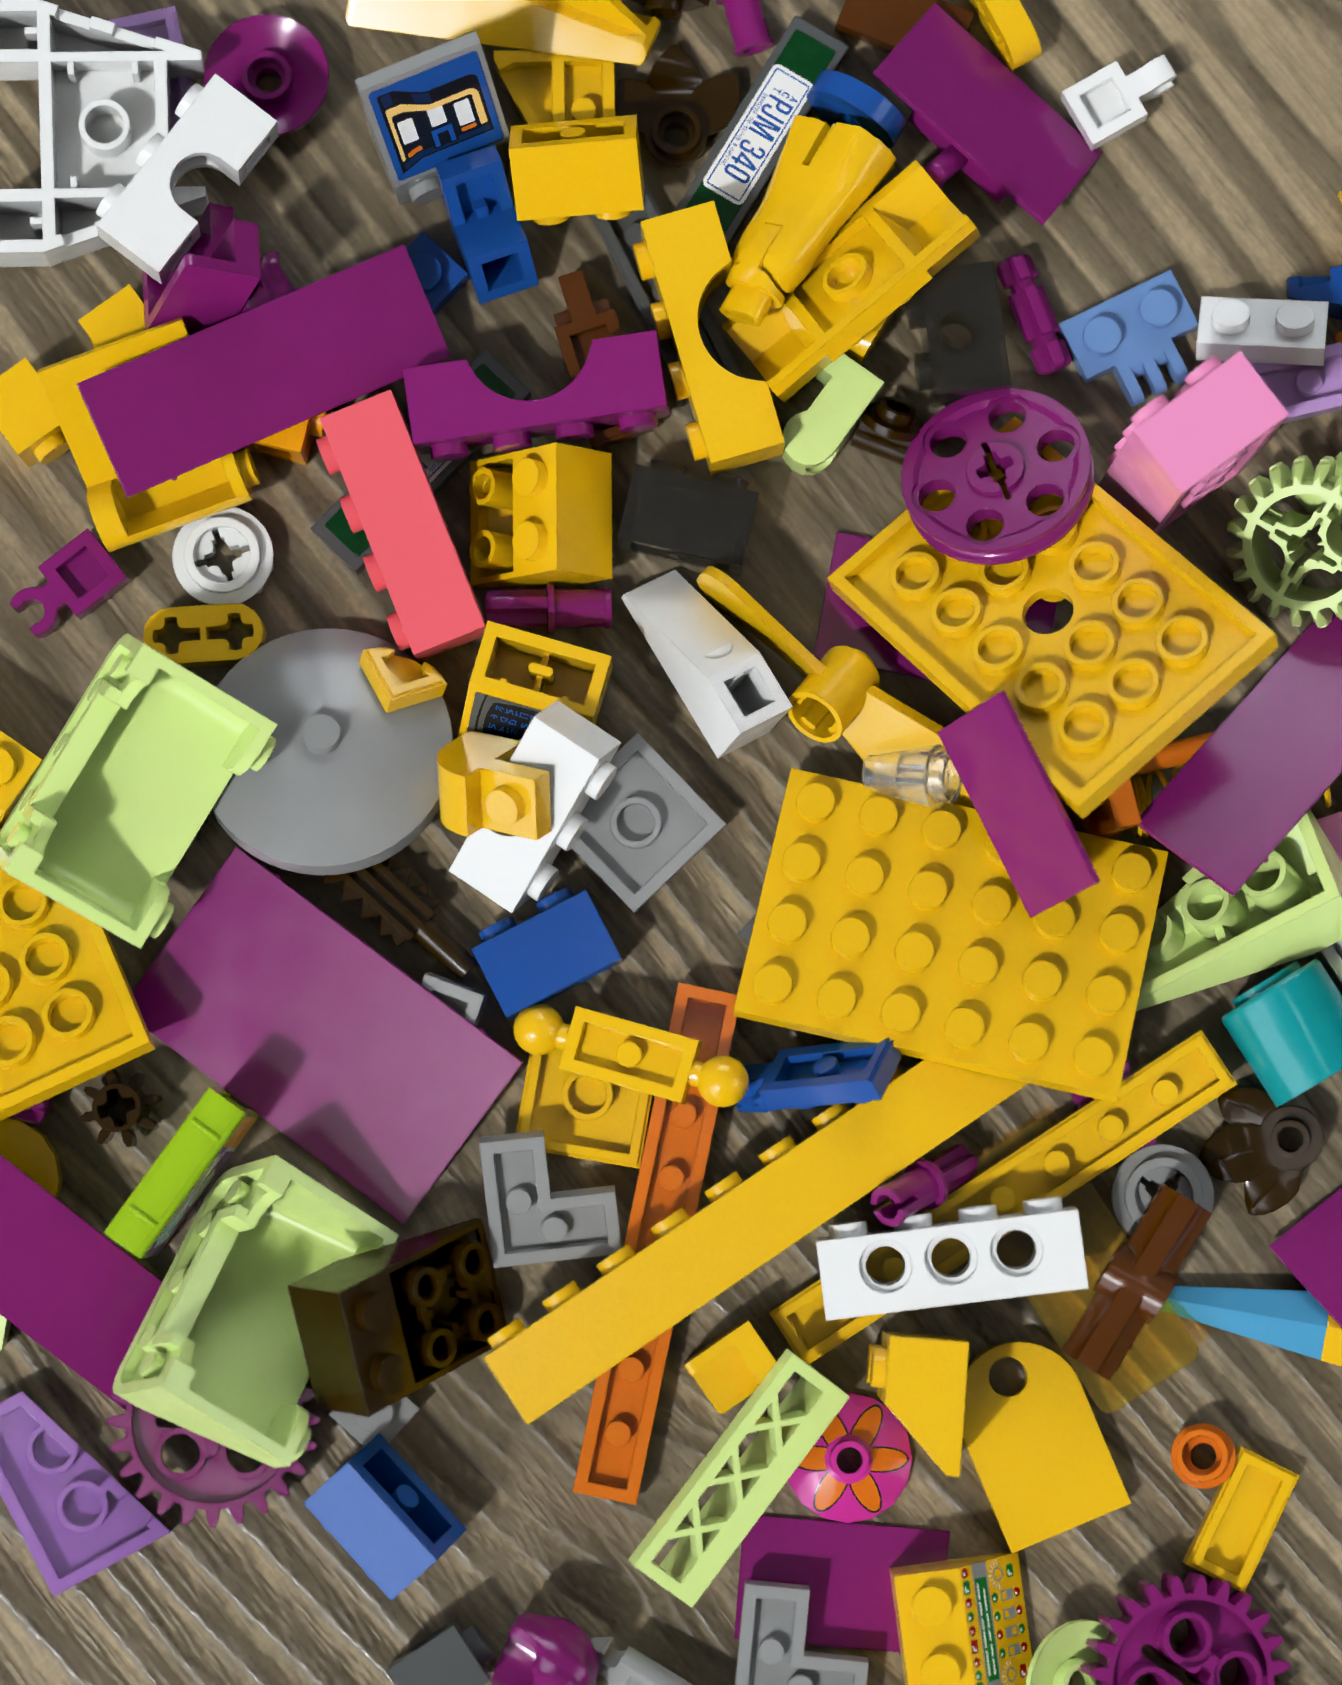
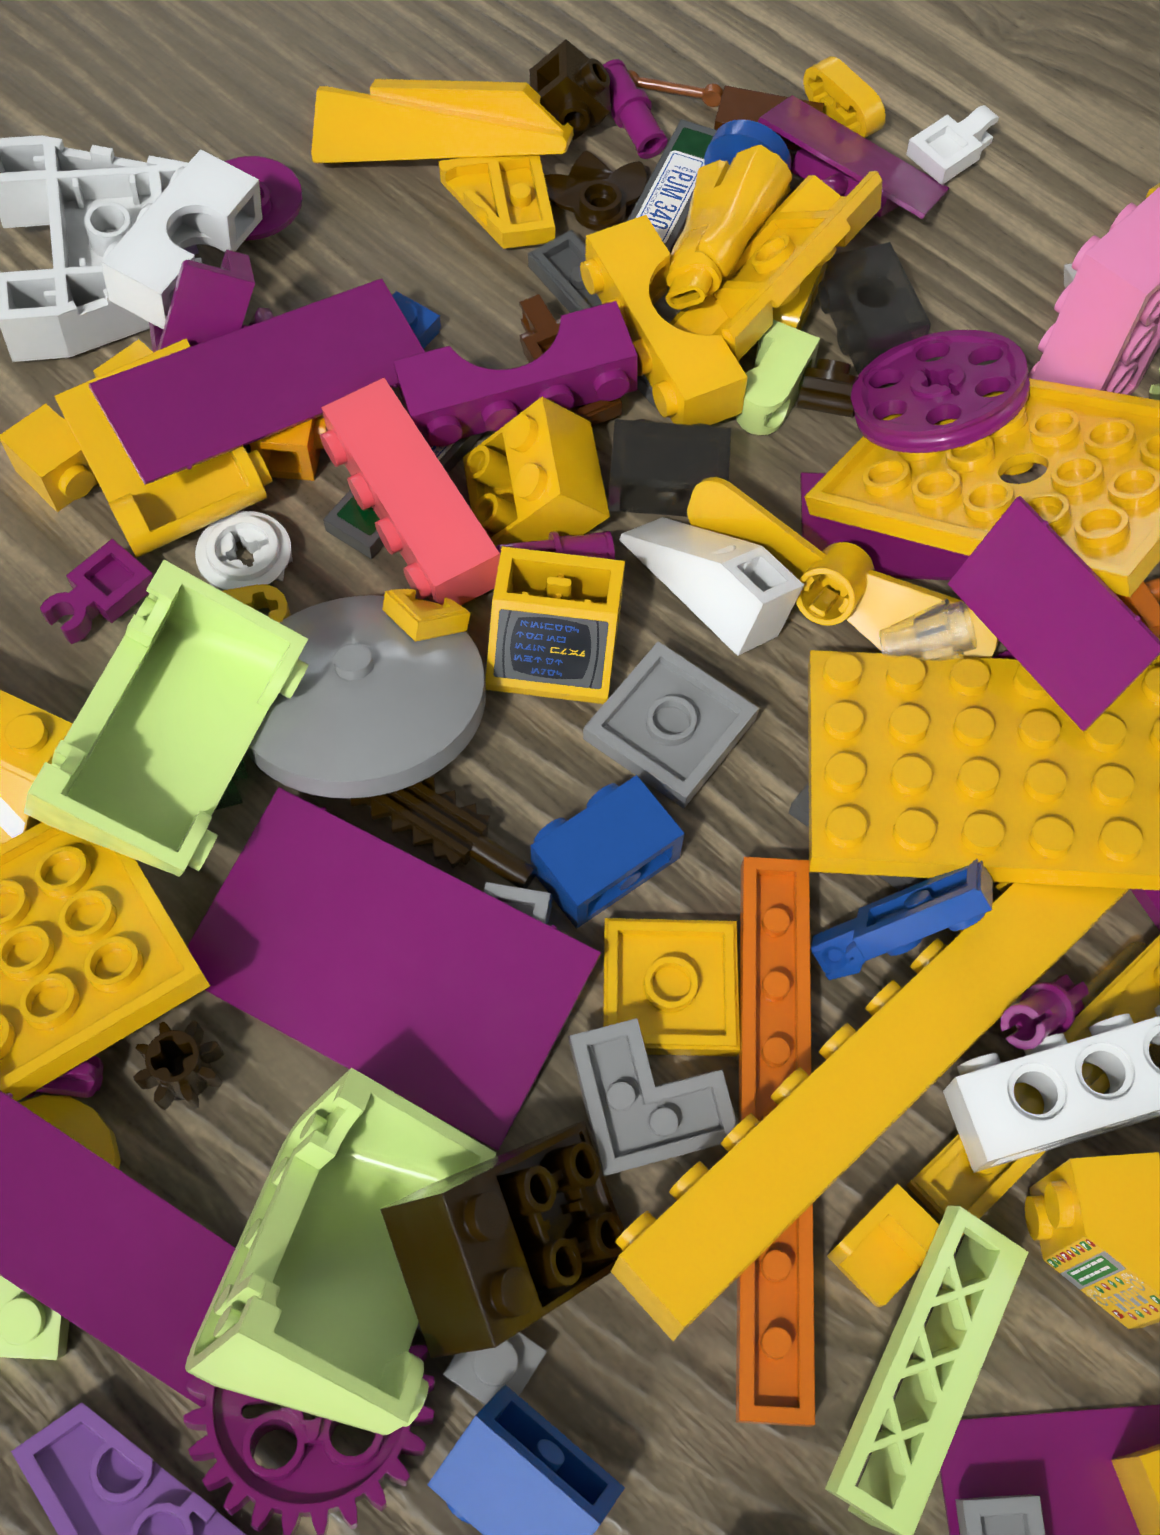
camera: 10 degrees left, 20 degrees down
(181, 1174) = (249, 1116): lime piece -> none
(430, 113) = (394, 181): slope -> none
(486, 224) = (446, 270): blue brick -> none
(488, 791) = (534, 683): yellow brick -> none
(576, 169) = (524, 215): yellow brick -> none
(579, 767) = (602, 656): white arch -> none
(631, 1055) = (713, 926): yellow plate -> none
(878, 1479) = (1052, 1375): dish -> none
(1033, 314) = (933, 297): magenta axle -> none
(1133, 337) = (1012, 301): medium blue hinge -> none

